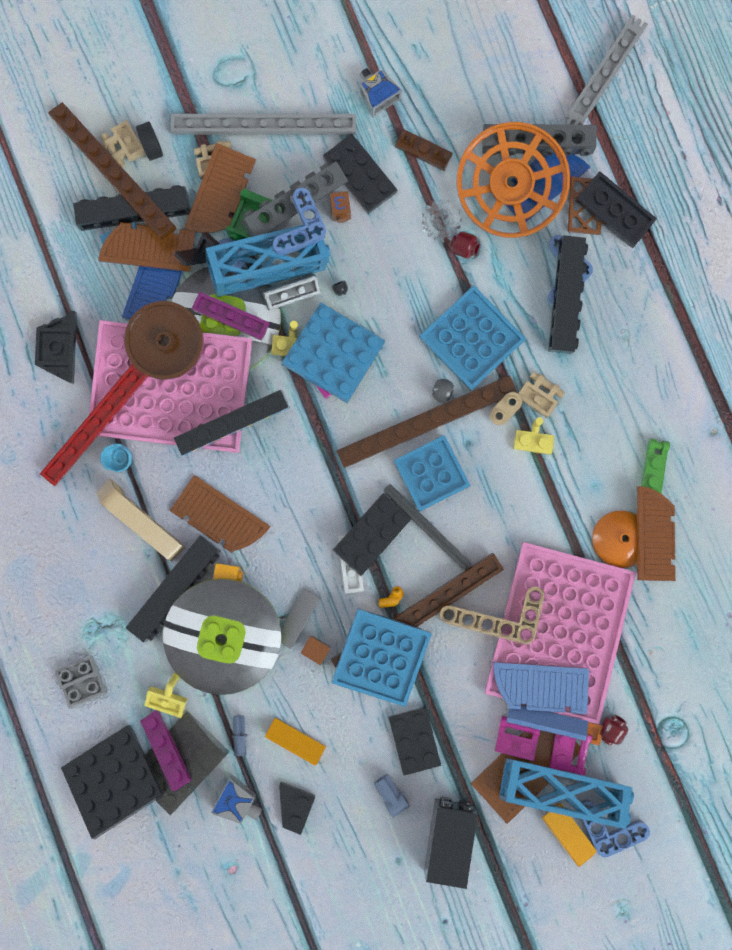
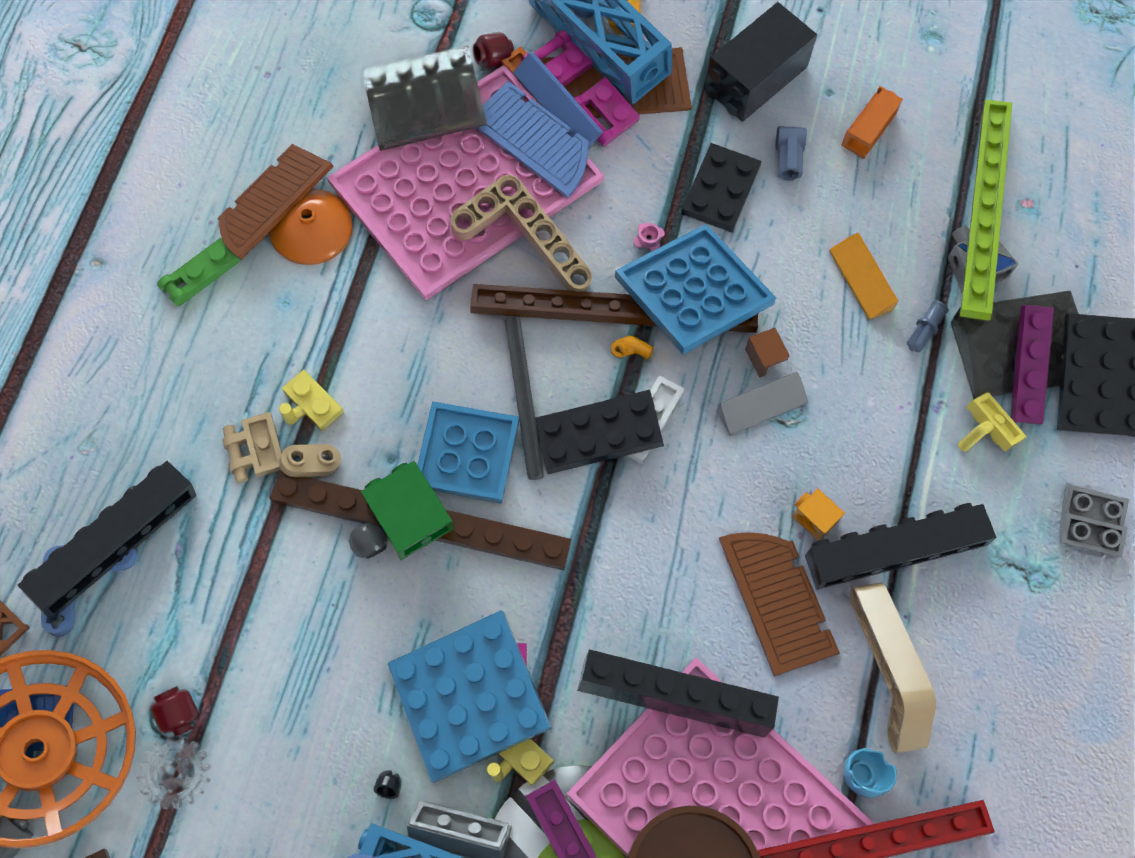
camera: 145 degrees left, 15 degrees down
(225, 609) = (866, 478): dish -> none
(251, 838) = (986, 211): none -> lime plate
(294, 807) = (910, 213): black wing -> none
(357, 855) = (872, 122): none -> orange window
(435, 415) = (407, 509): none -> green panel
(436, 675) = (651, 230): none -> bright pink plate
(472, 338) = (273, 581): dark azure plate -> none
(623, 662) = (424, 98): none -> clear smoke slope

